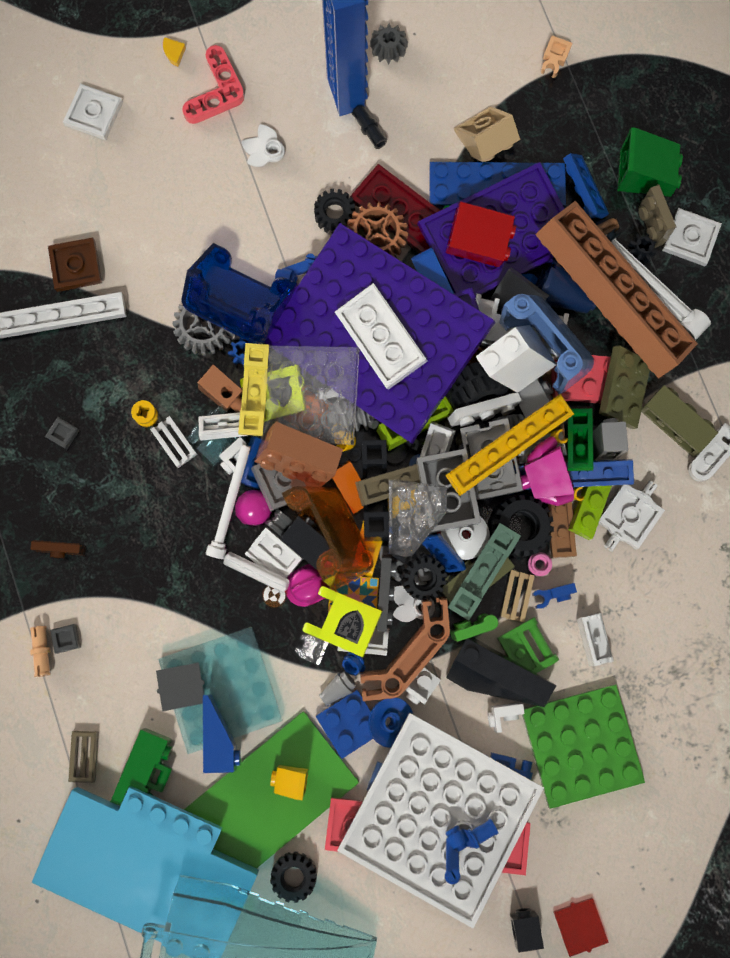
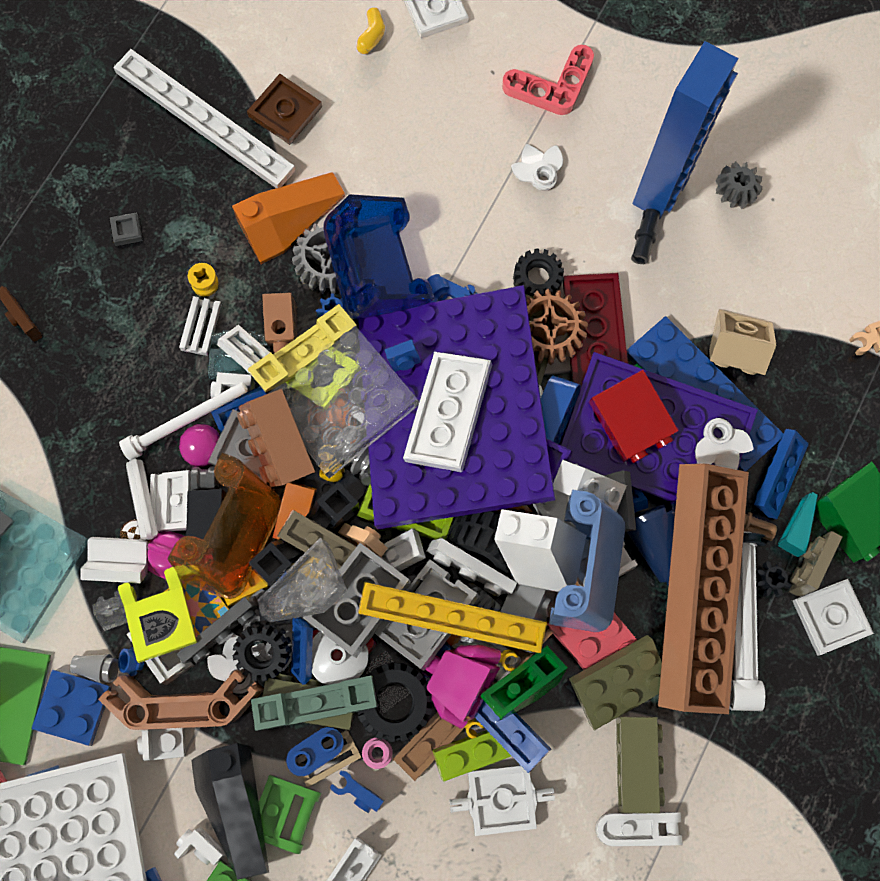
camera: 45 degrees right, 5 degrees down
(75, 164) = (373, 33): none -> yellow arm
(148, 326) = (282, 214): none -> orange wedge
(173, 50) = (552, 21): yellow tile -> none
(281, 620) = (116, 560): none -> white panel
(319, 332) = (403, 356): none -> blue plate
(397, 711) = (85, 744): blue dish -> none
(407, 458) = (366, 536): none -> light nougat plate
(466, 629) = (255, 743): bright green plate -> none
(493, 300) = (579, 478): none -> white brick
(508, 598) = (315, 752): none -> blue plate
(546, 204) = (723, 450): none -> white plate
(610, 440) = (554, 712): light grey brick -> none
(626, 206) = (797, 533): none -> teal slope

